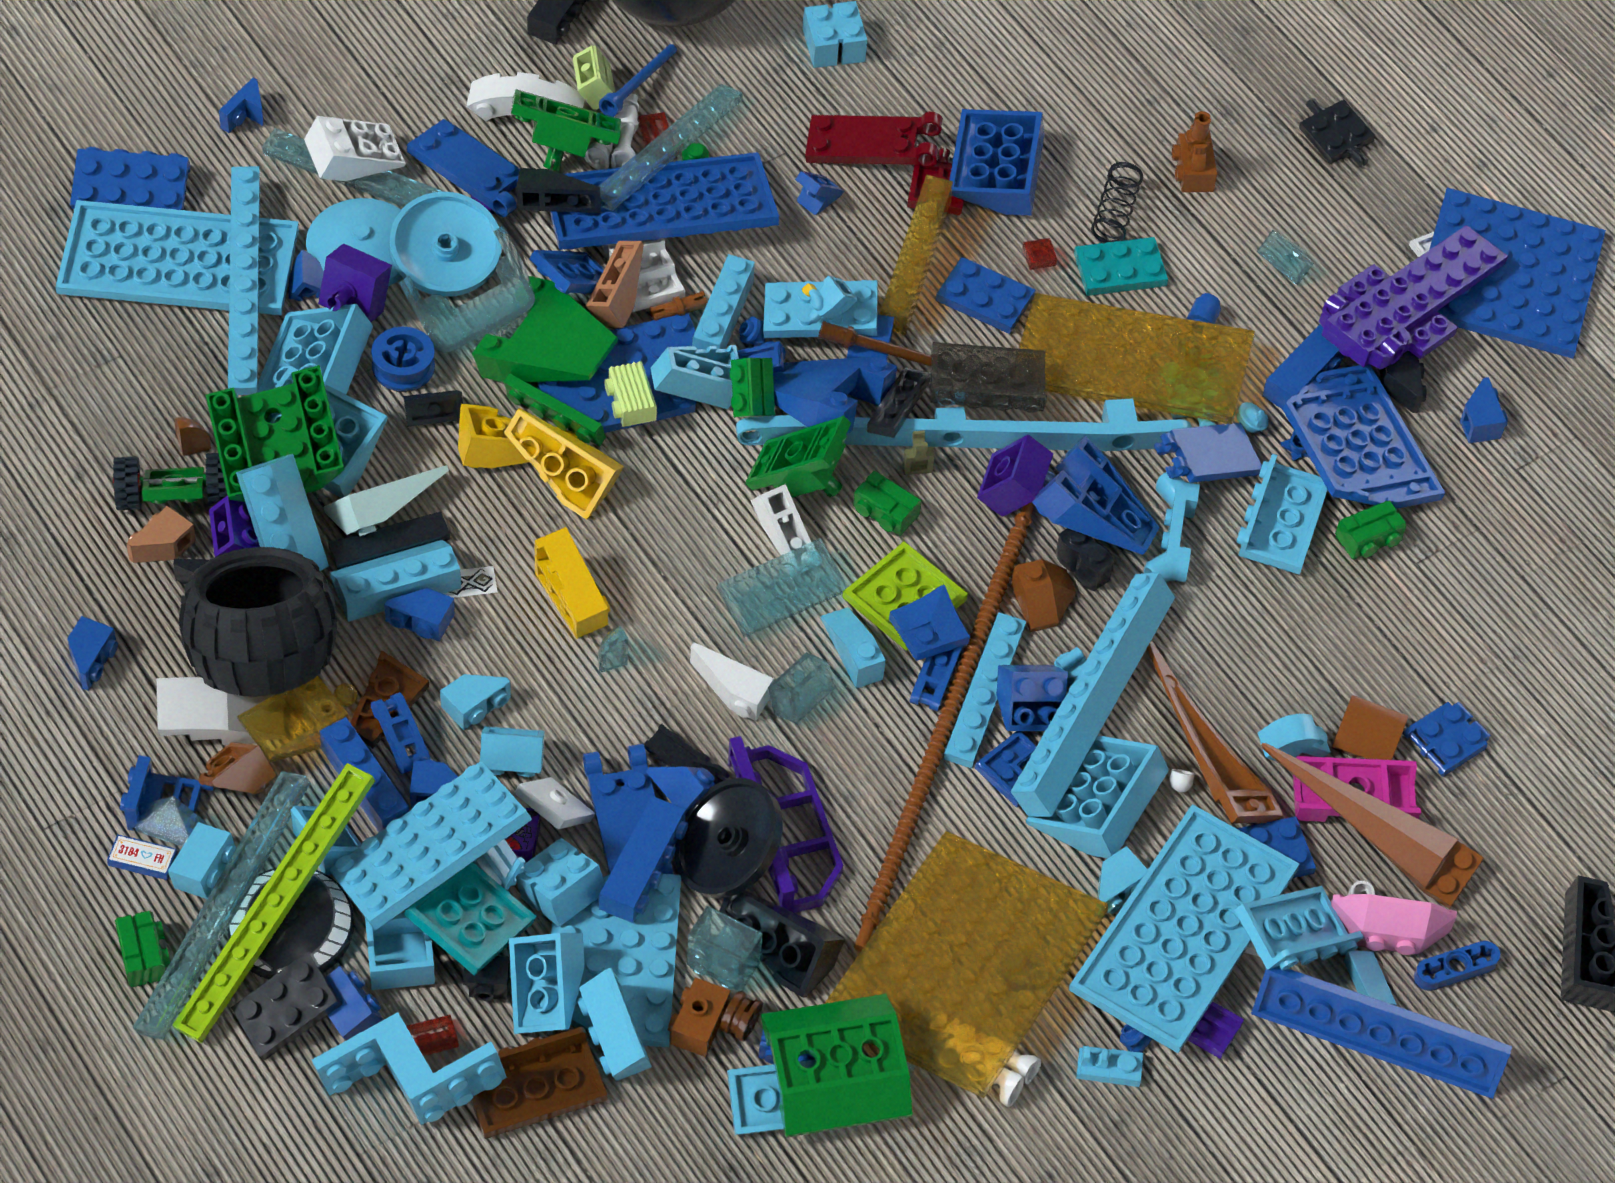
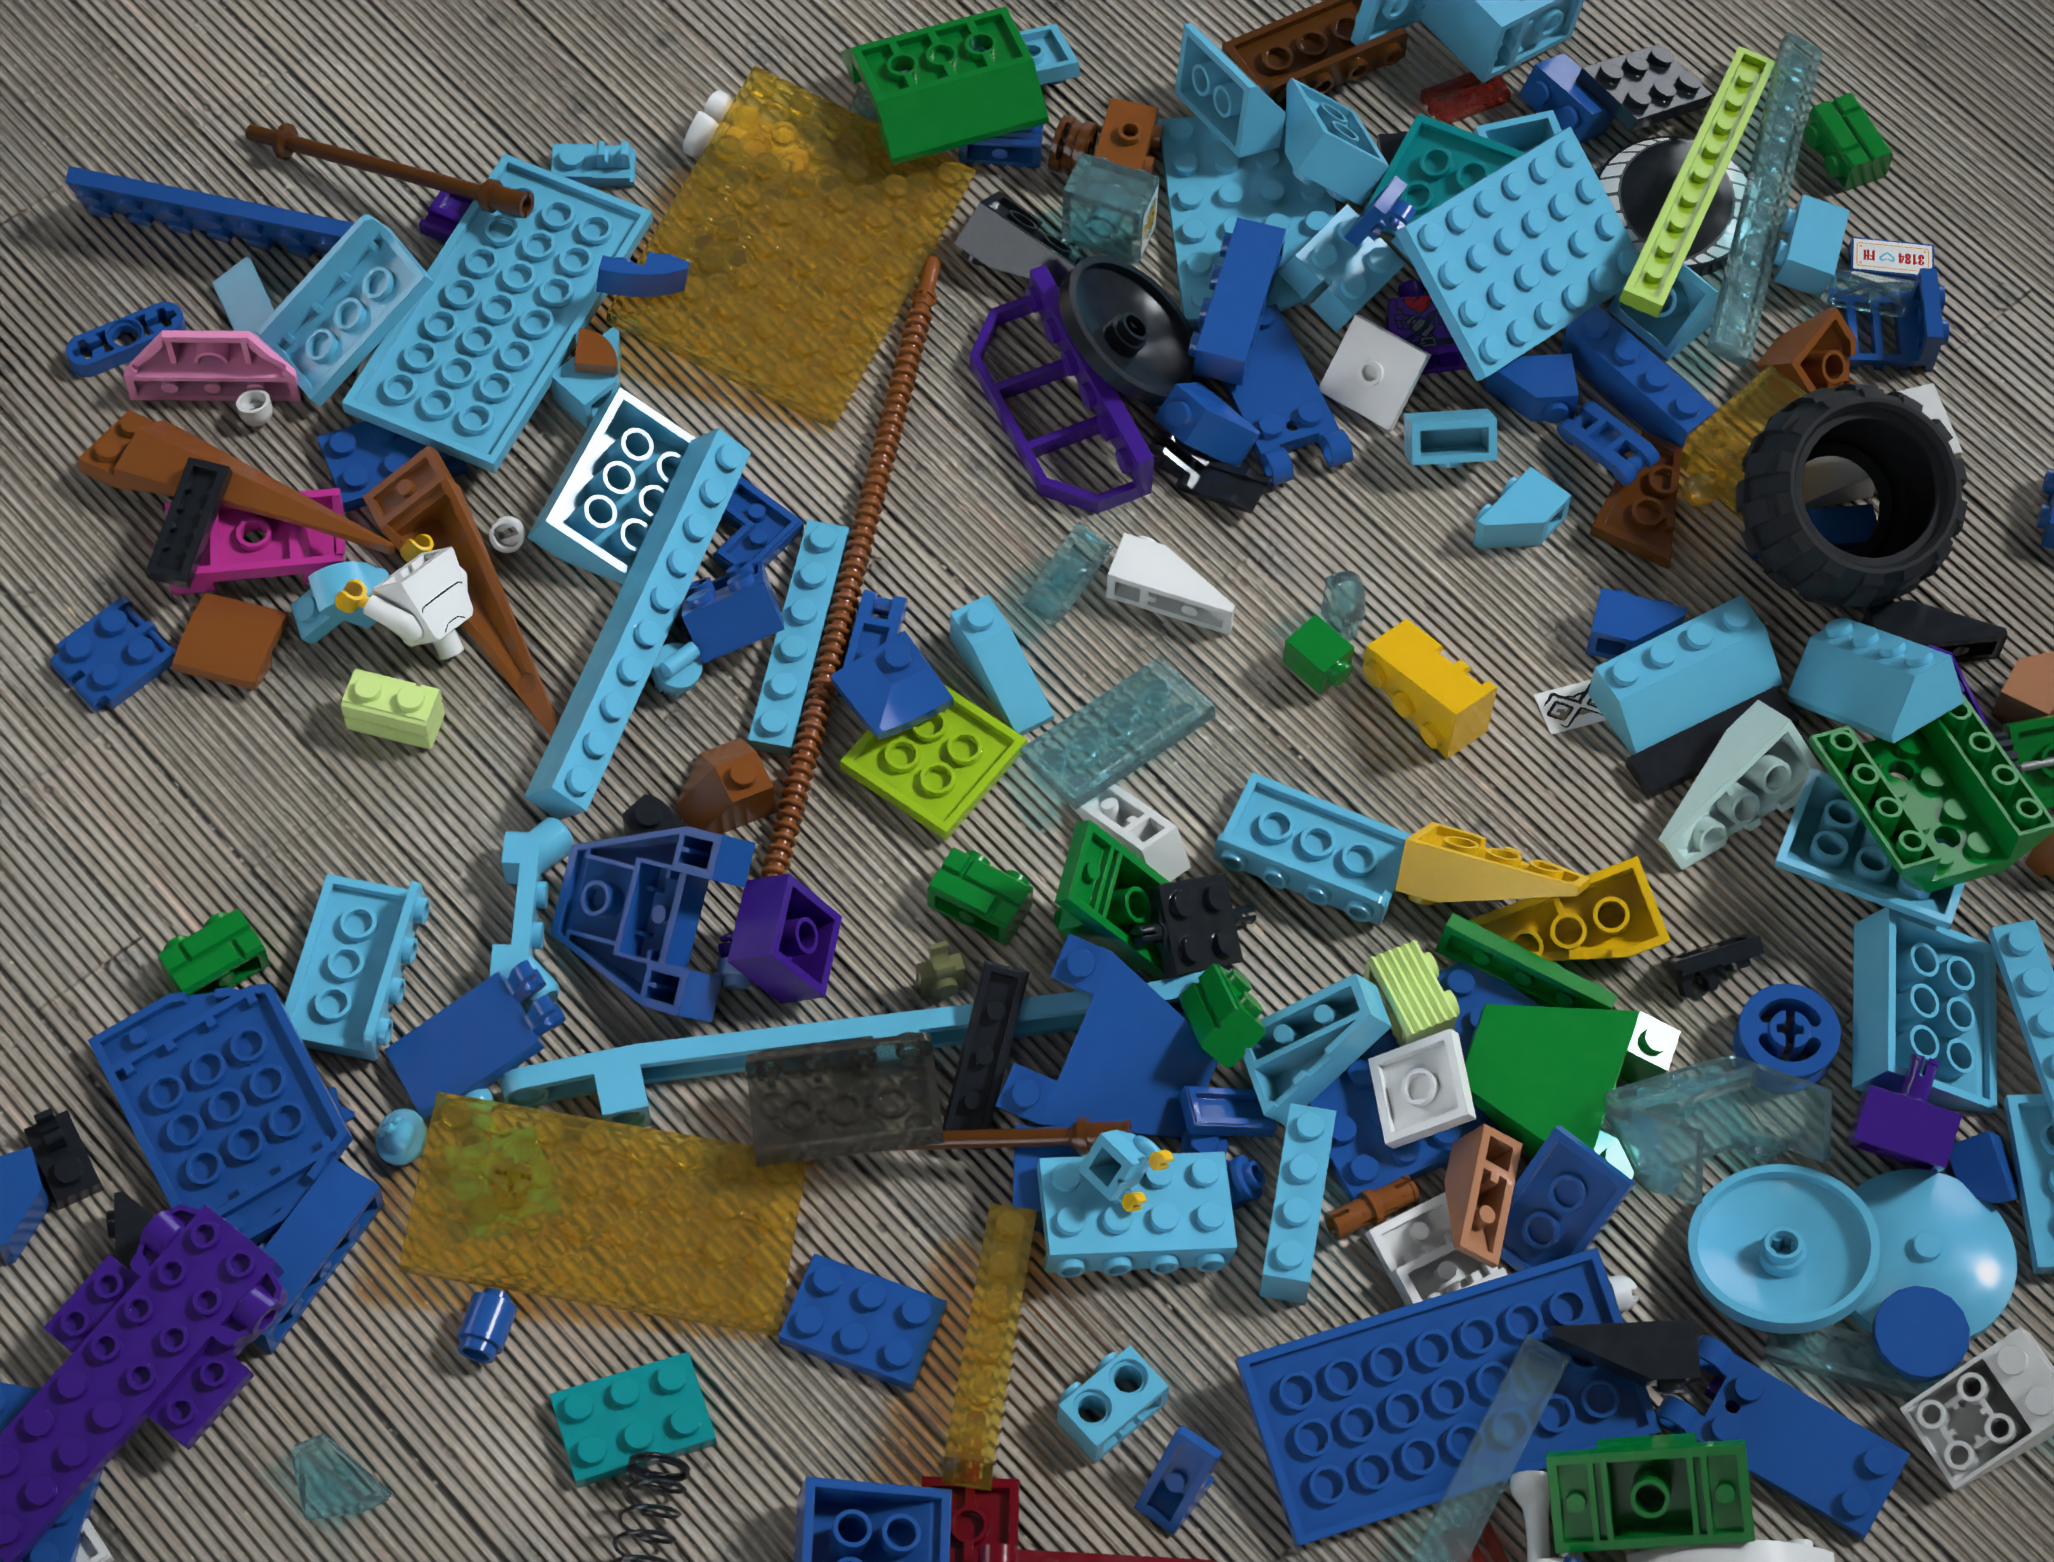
camera: 175 degrees right, 5 degrees up
(381, 191) = (1920, 1333): none -> blue tile
(536, 856) = (1382, 212): none -> blue plate
(544, 243) = (1622, 1291): none -> white hinge
(637, 335) = (1422, 1088): none -> white plate
(639, 615) = (1318, 655): none -> green brick
(669, 502) = (1313, 849): none -> medium azure bracket
(695, 151) = (1405, 1532): green plate -> none
(757, 452) = (1193, 924): none -> black plate
(849, 230) = (1121, 1410): none -> medium azure brick
(1039, 253) = (777, 1411): clear red plate -> none
(1071, 905) = (659, 276): none -> blue slope
(1117, 875) = (594, 354): none -> dark orange tile
(1193, 999) = (490, 194): none -> reddish brown bar
(1241, 716) = (419, 600): none -> white torso
(1260, 664) = (392, 709): none -> yellowish green brick
(1402, 784) = (189, 523): none -> black plate
(1455, 440) = (62, 1158): none -> black plate

